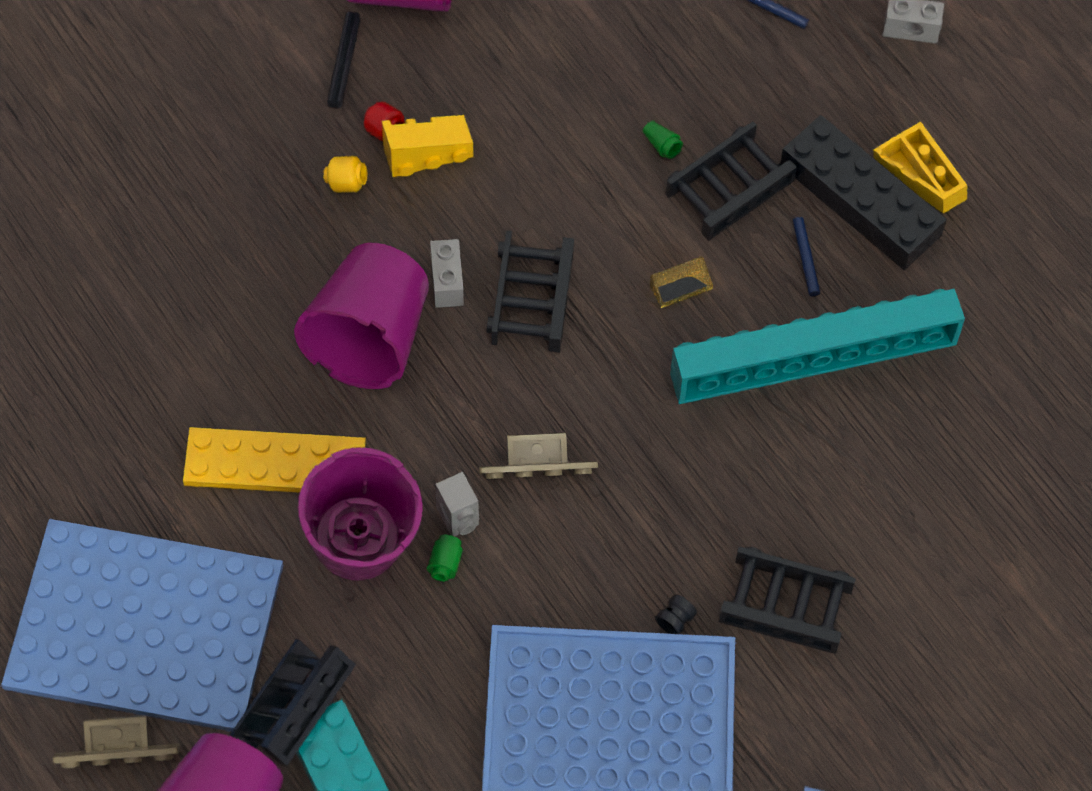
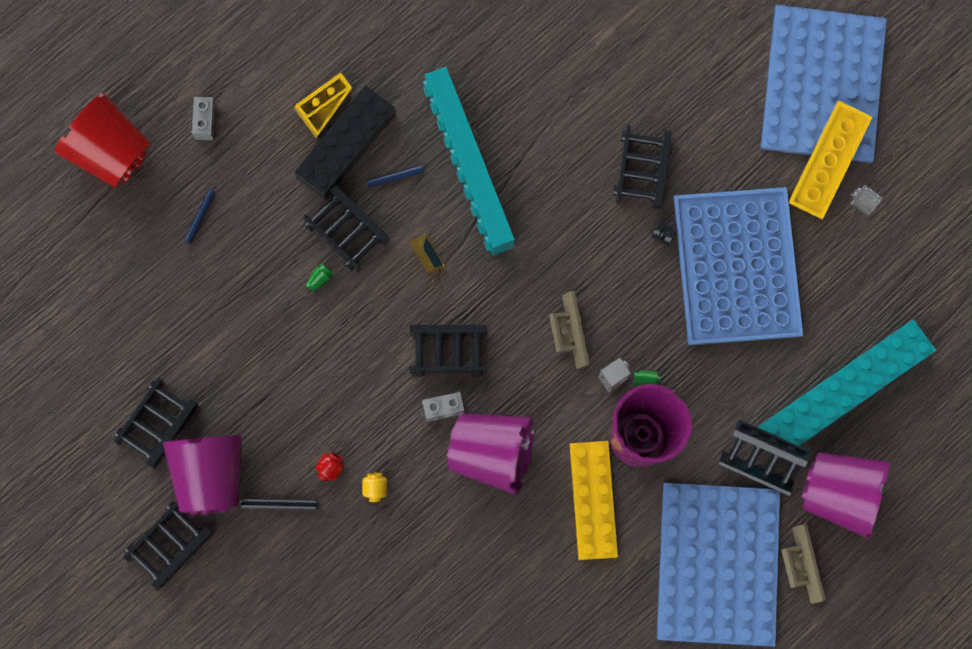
camera: 100 degrees left, 15 degrees up
(426, 145) = (346, 433): yellow wedge -> none

